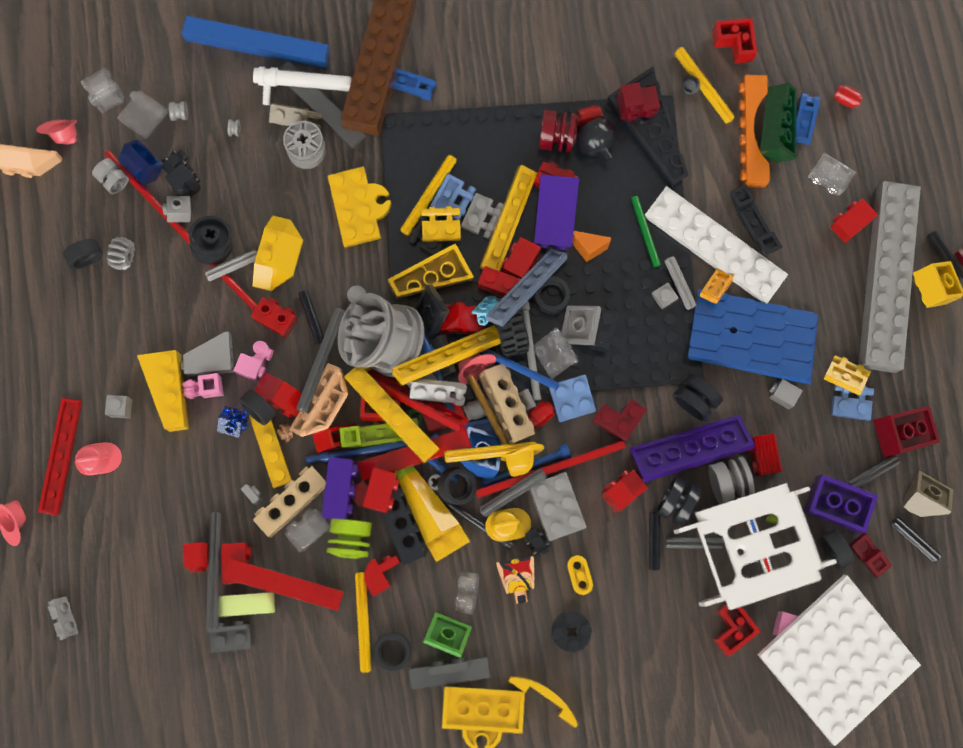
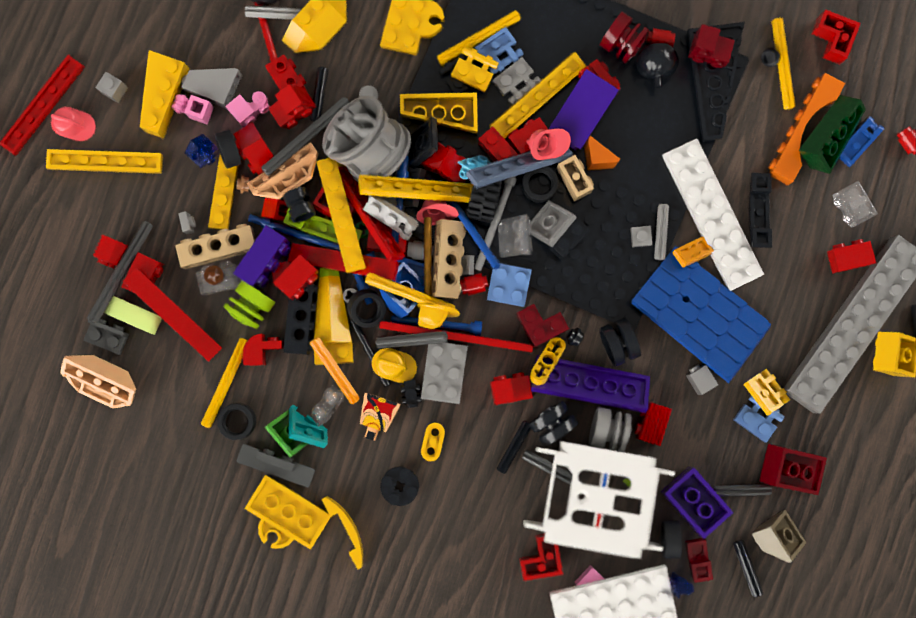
camera: 30 degrees right, 5 degrees up
(145, 477) = (104, 161): none -> yellow plate
(246, 681) = (99, 380): none -> light nougat wedge
(294, 339) = (291, 106): none -> red brick
(303, 528) = (214, 275): none -> reddish brown tile
(351, 425) = (297, 201): none -> black wheel
(457, 557) = (334, 370): none -> light orange axle
(460, 624) = (306, 430): none -> teal wing
(542, 255) = (549, 143): none -> coral piece
(580, 274) = (575, 178): none -> tan brick
(643, 454) = (547, 353): none -> yellow beam
(645, 231) = (656, 169): green bar -> none
(655, 414) = (575, 336): none -> black plate
(868, 586) = (680, 585): none -> clear blue hinge

